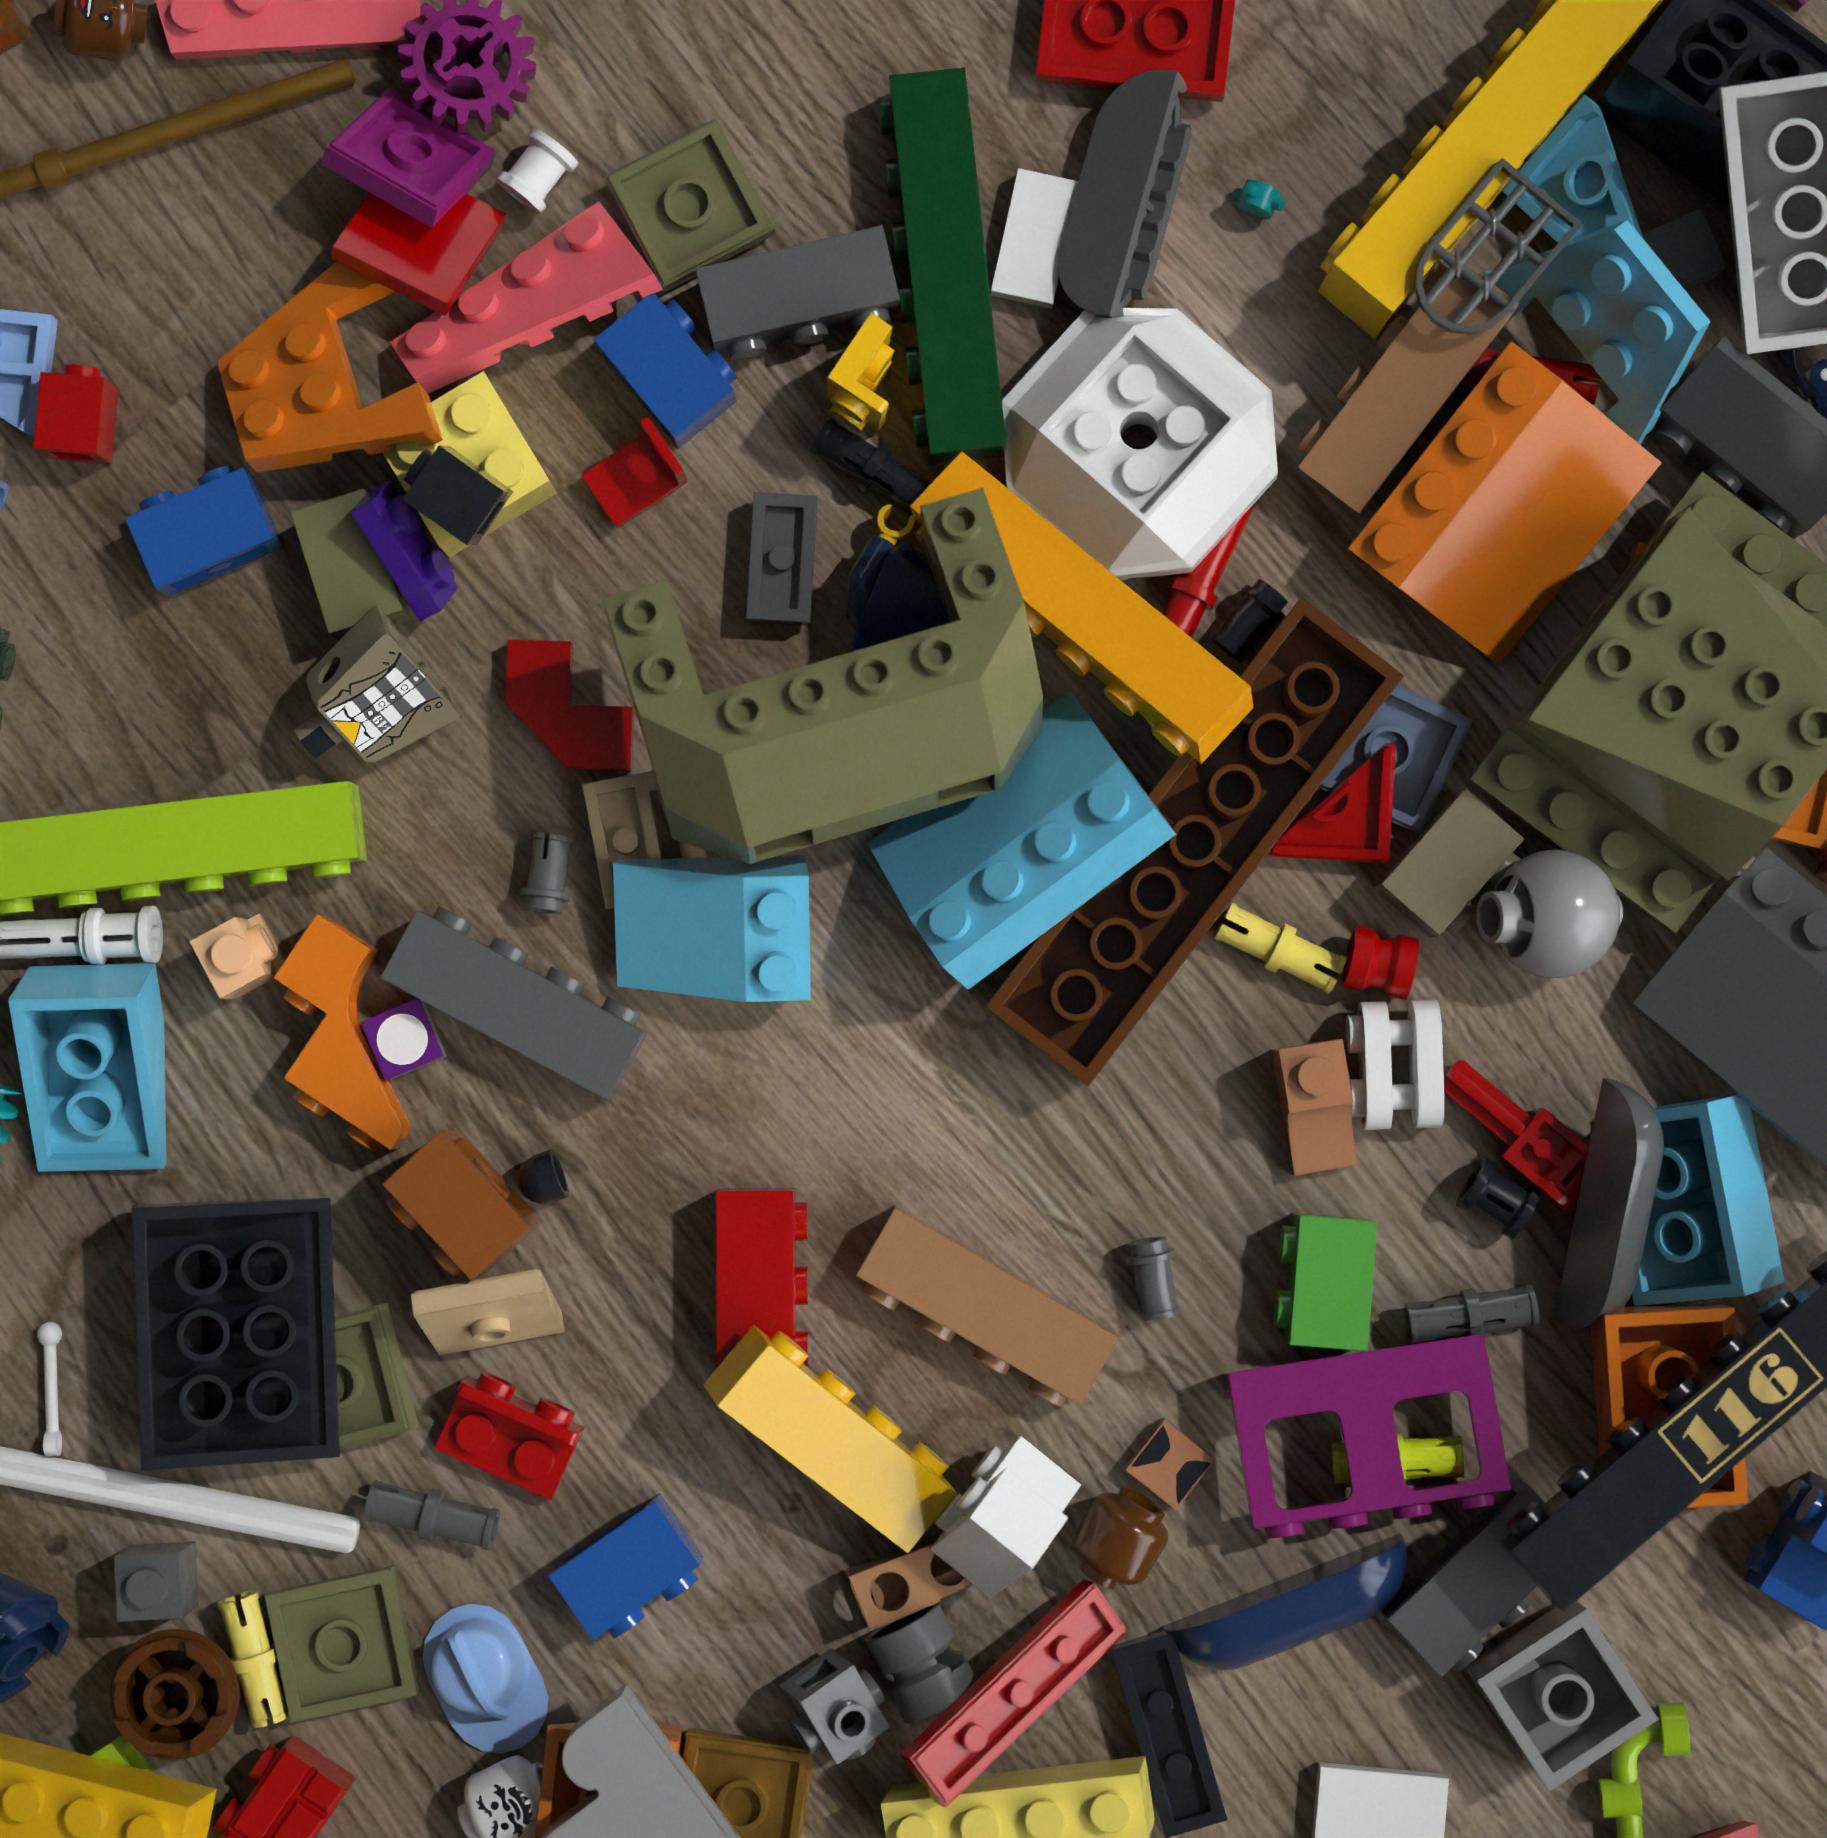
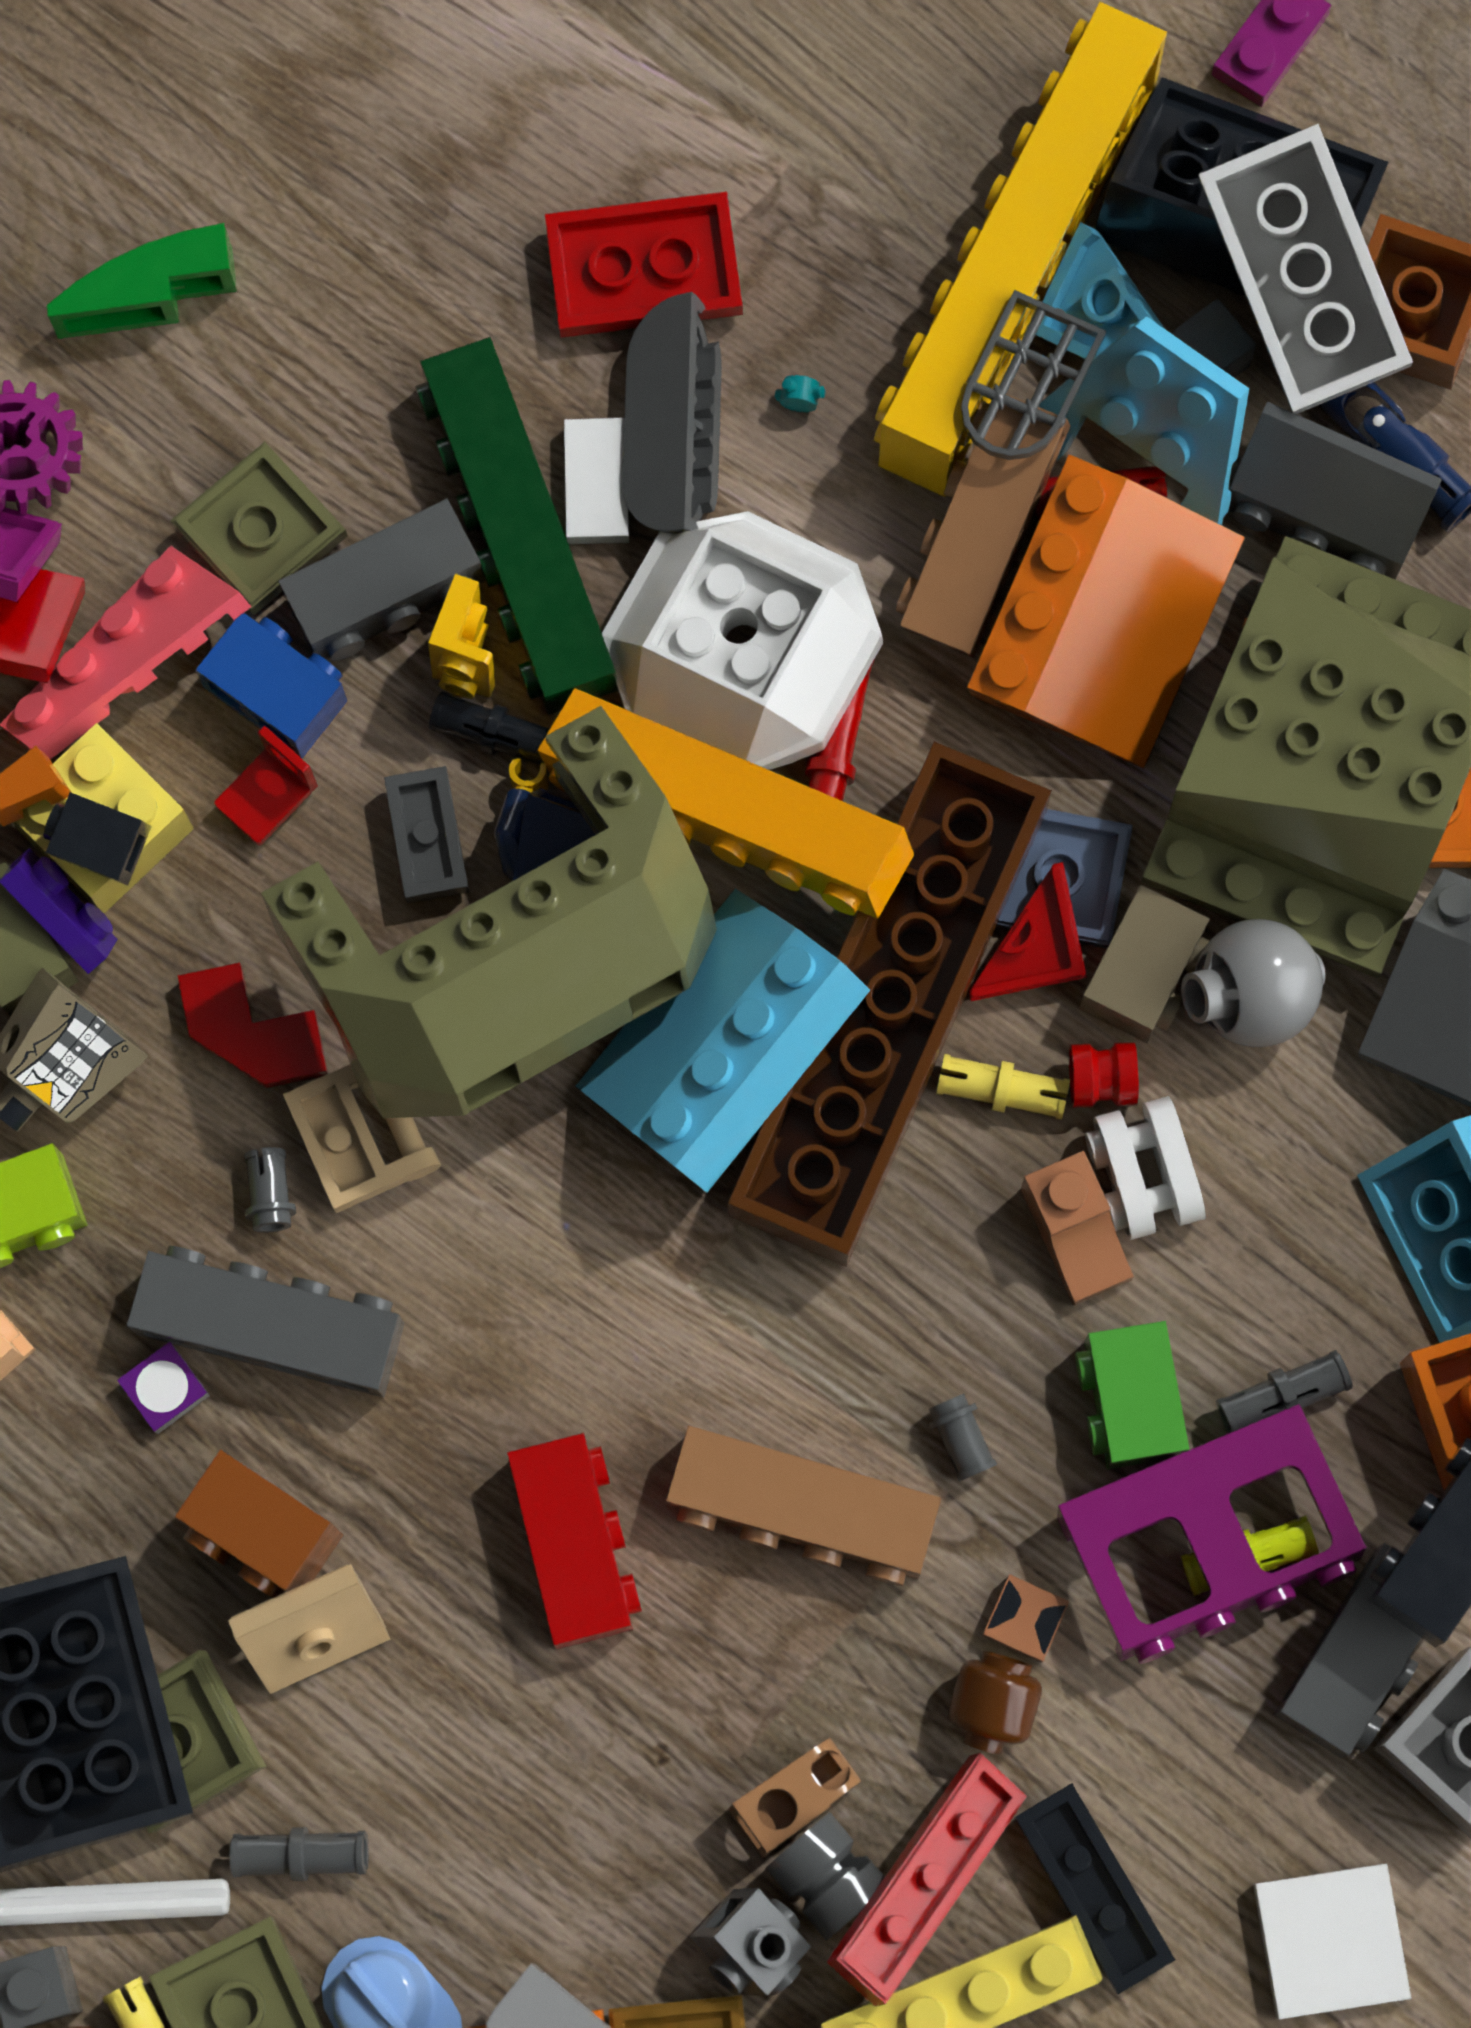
camera: 10 degrees left, 10 degrees down
(338, 1062) = (101, 1424): orange arch -> none
(510, 1435) = (360, 1755): red bracket -> none
(536, 171) = (105, 531): white bush -> none
(542, 1178) = (332, 1489): black hinge -> none
(627, 1569) = (509, 1857): blue piece -> none
(714, 927) = (443, 1197): medium azure slope -> none
(830, 1437) = (681, 1666): yellow brick -> none
(1004, 1516) = (870, 1703): white brick -> none
(1249, 619) = (892, 780): black pin -> none
(1294, 1608) = (1188, 1733): dark blue brick -> none
(1498, 1198) = (1293, 1290): black bush -> none
(1536, 1146) = (1304, 1216): red connector -> none
(1611, 1207) = (1390, 1249): dark grey brick -> none

